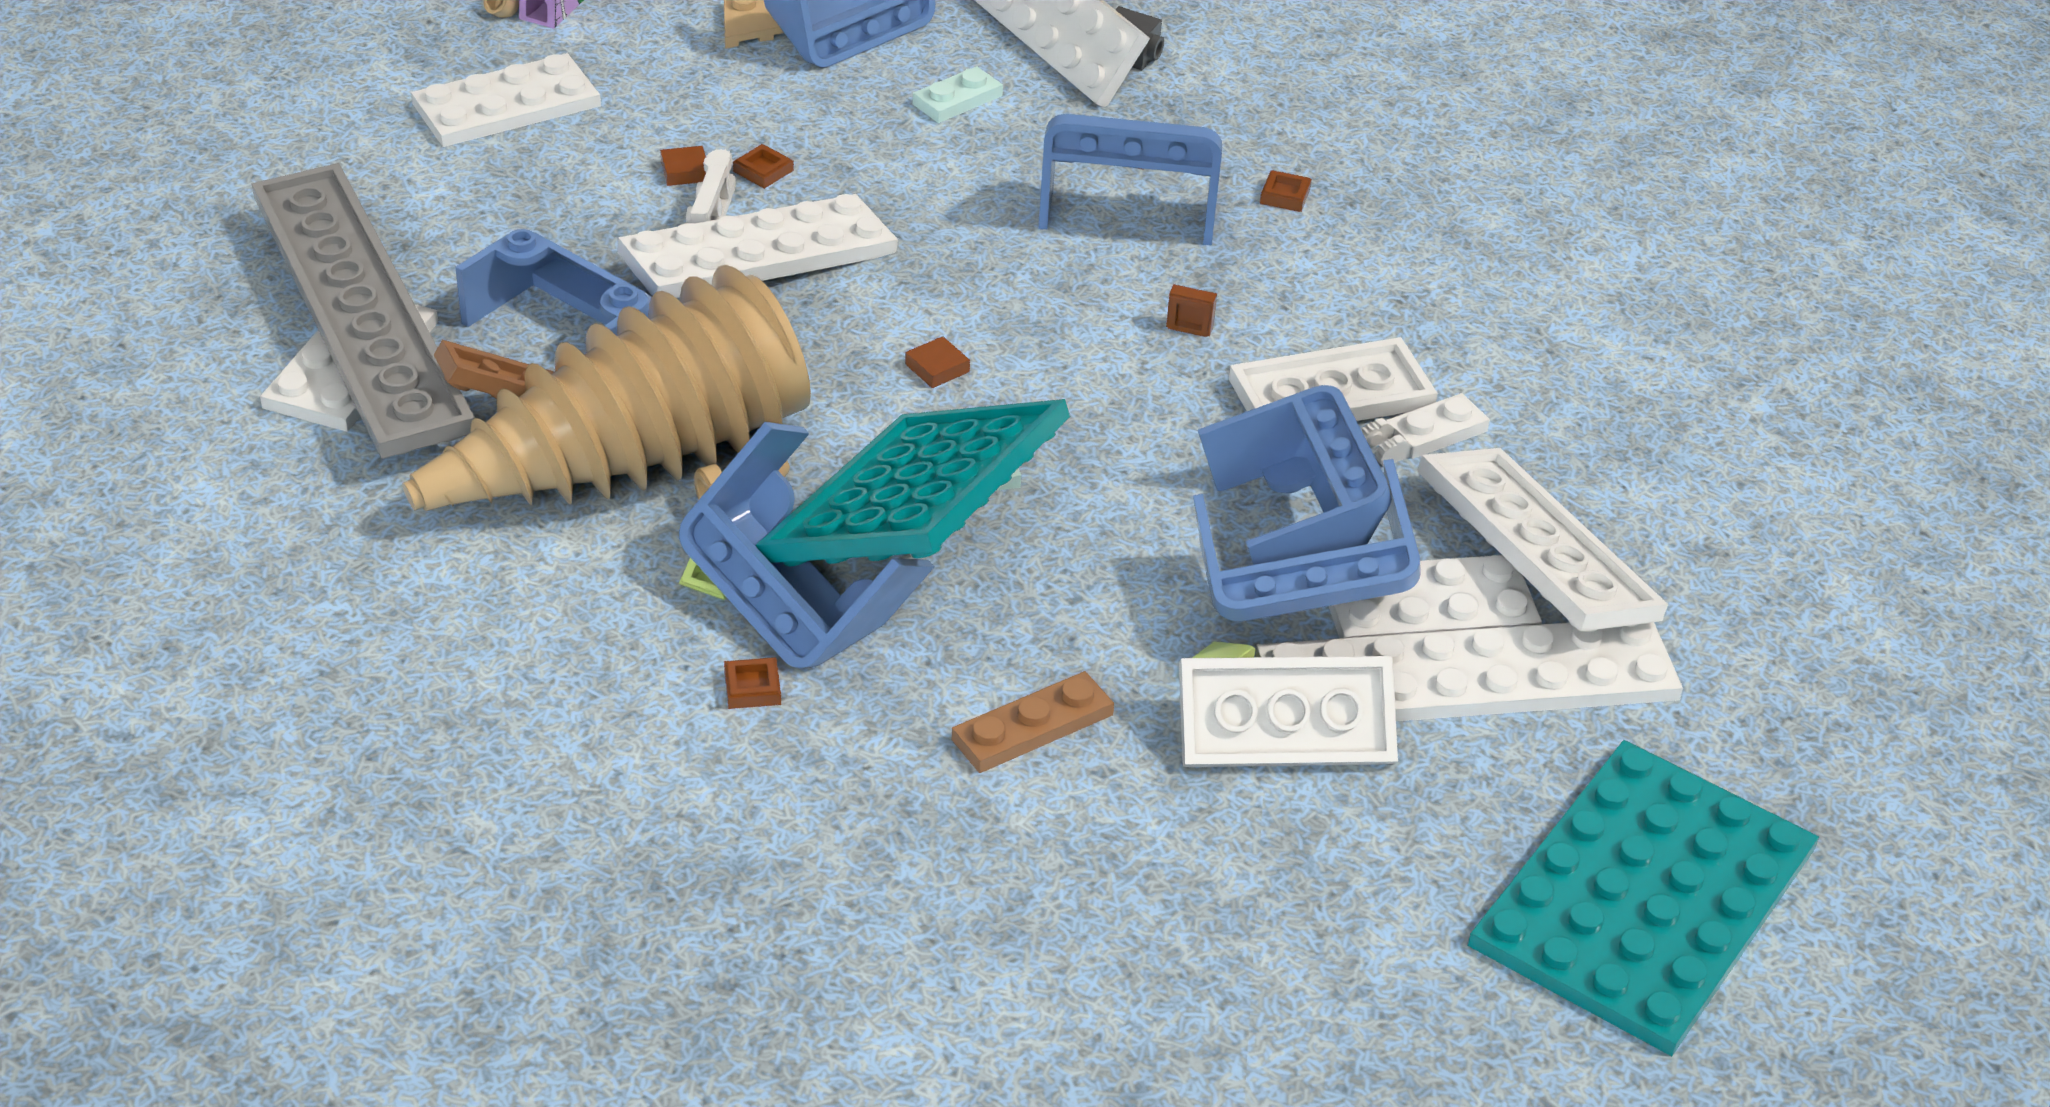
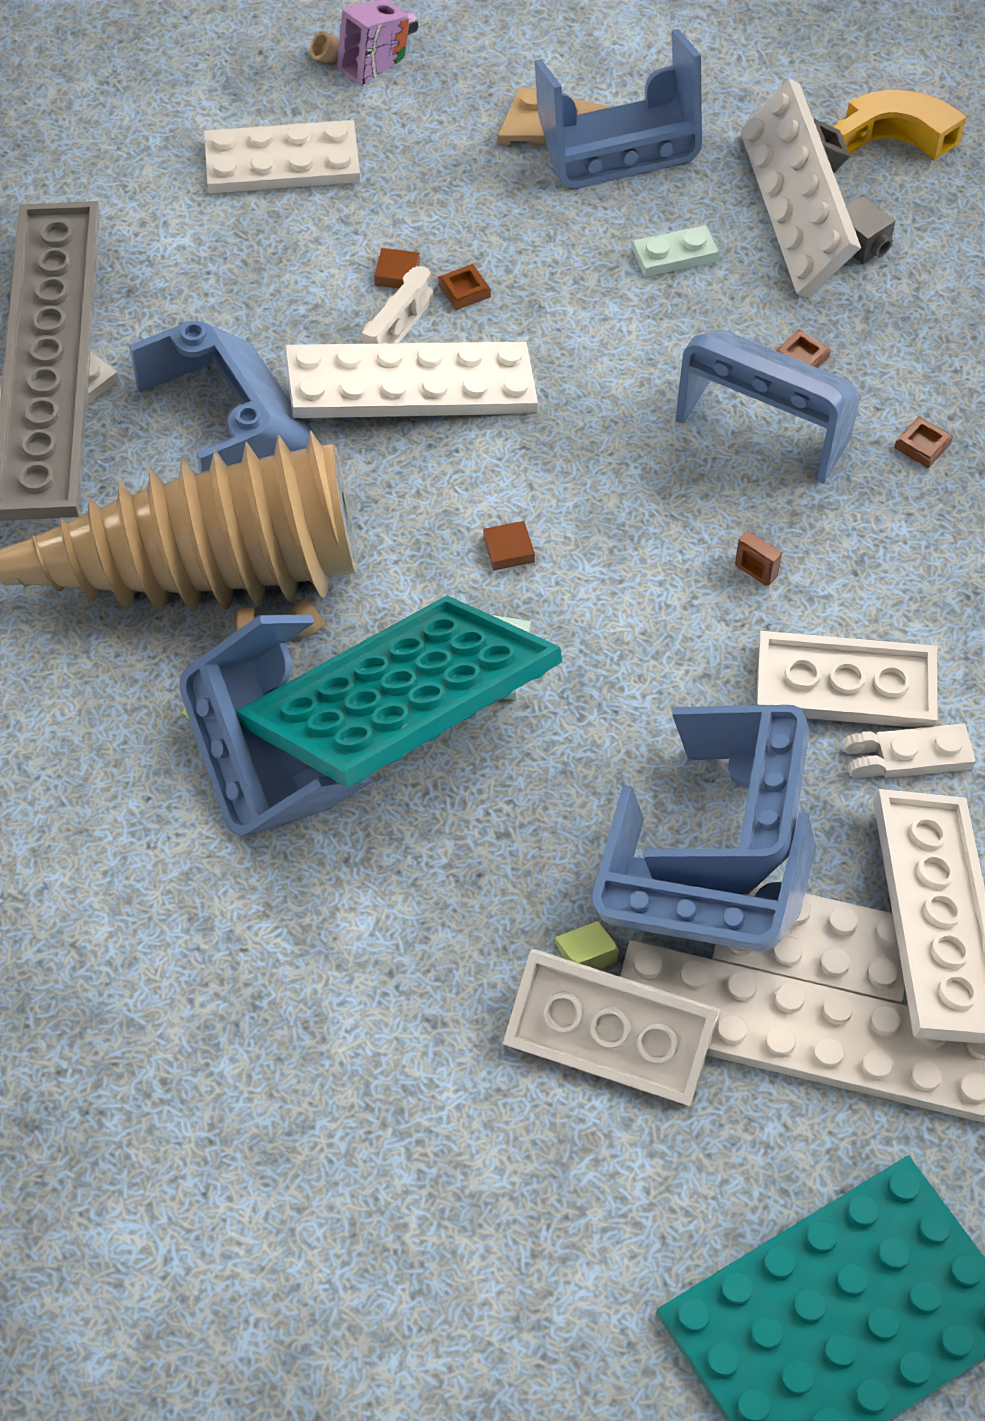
camera: 25 degrees right, 15 degrees up
(479, 370) = (110, 462): medium nougat plate -> none
(752, 683) = (190, 835): dark orange tile -> none
(1032, 721) = (399, 952): medium nougat plate -> none

